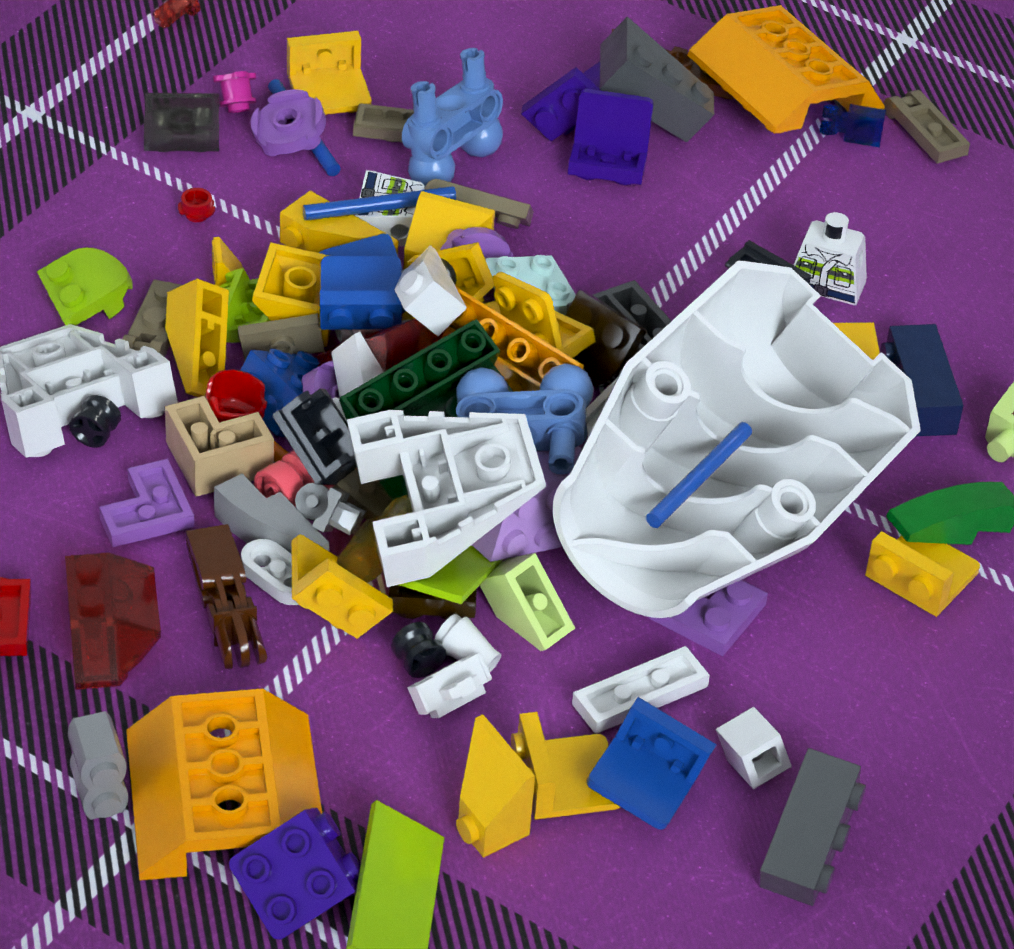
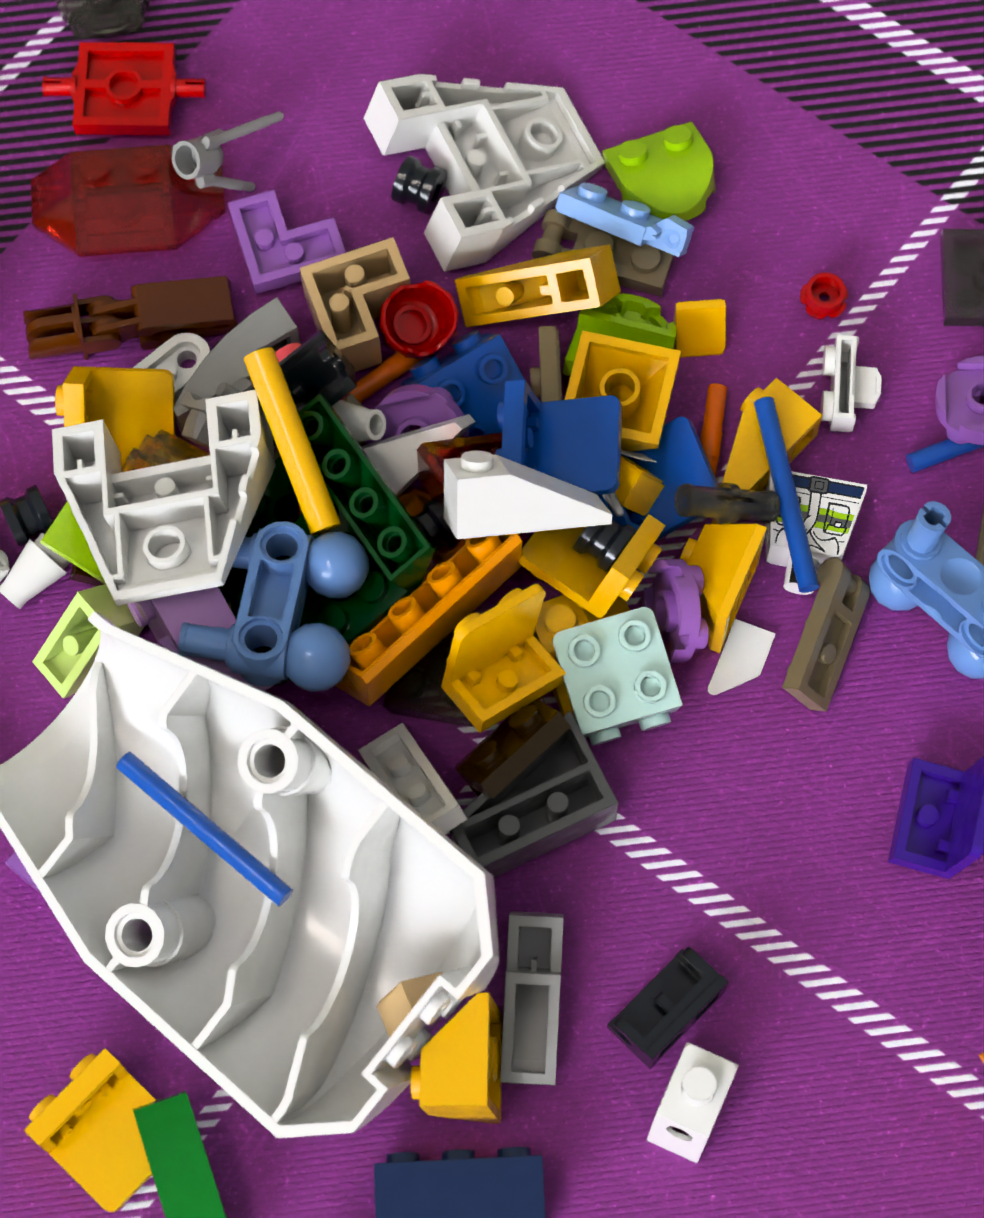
camera: 100 degrees right, 25 degrees up
(77, 532) = (203, 155): none -> light grey plant
(137, 295) = (625, 219): none -> light blue hinge
(271, 191) = (850, 384): none -> white piece
(396, 221) = (727, 503): none -> clear smoke pin
(407, 399) = (292, 441): none -> yellow piece
(802, 382) = (402, 999): none -> tan slope

